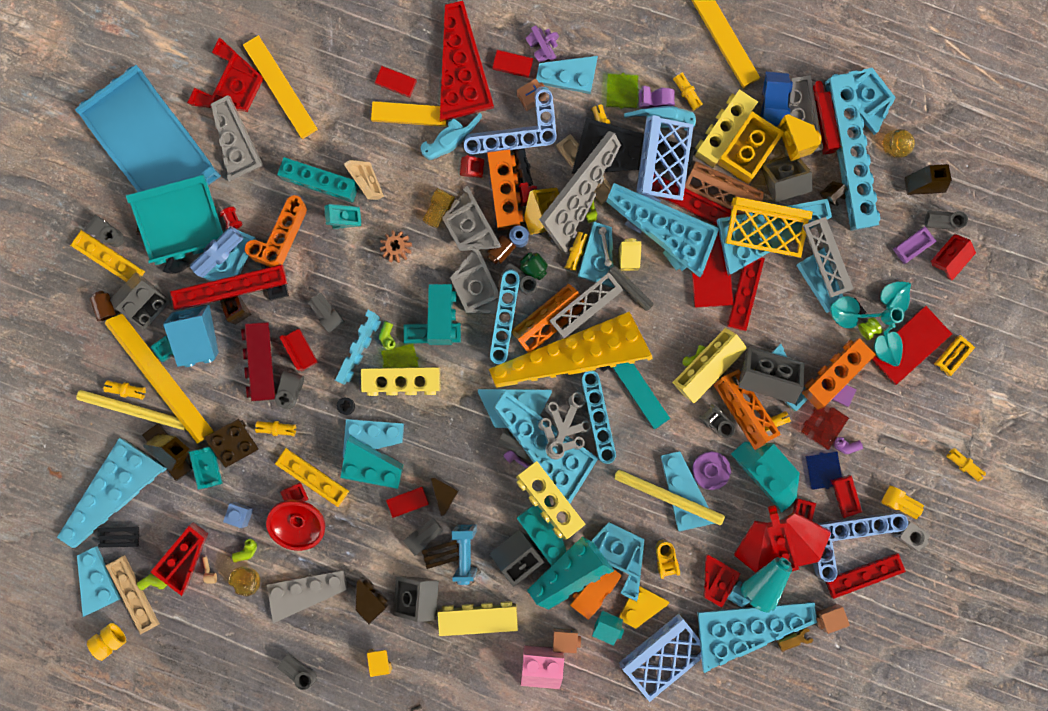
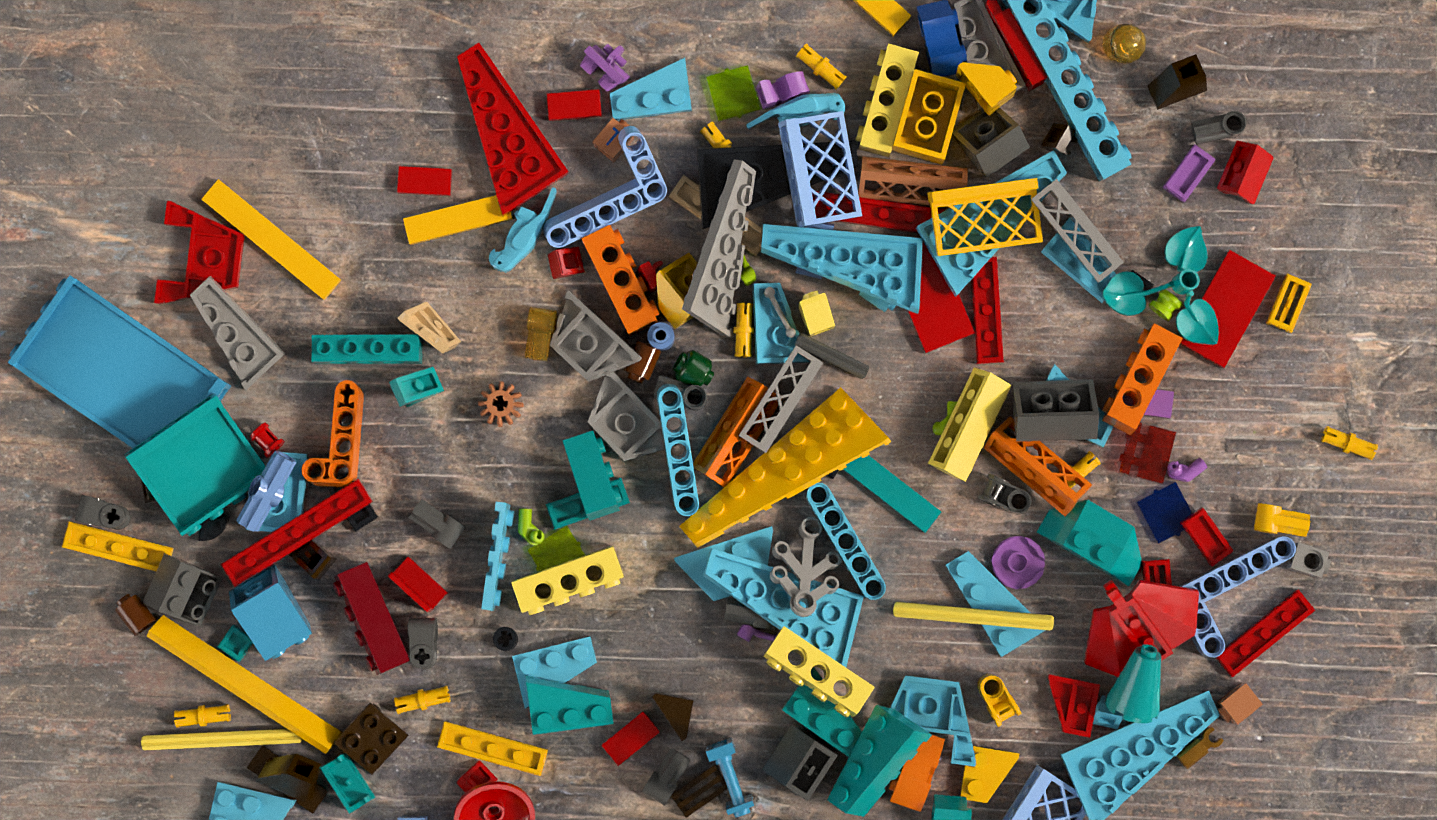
camera: 20 degrees left, 0 degrees up
(523, 166) = (635, 240): black pin -> none

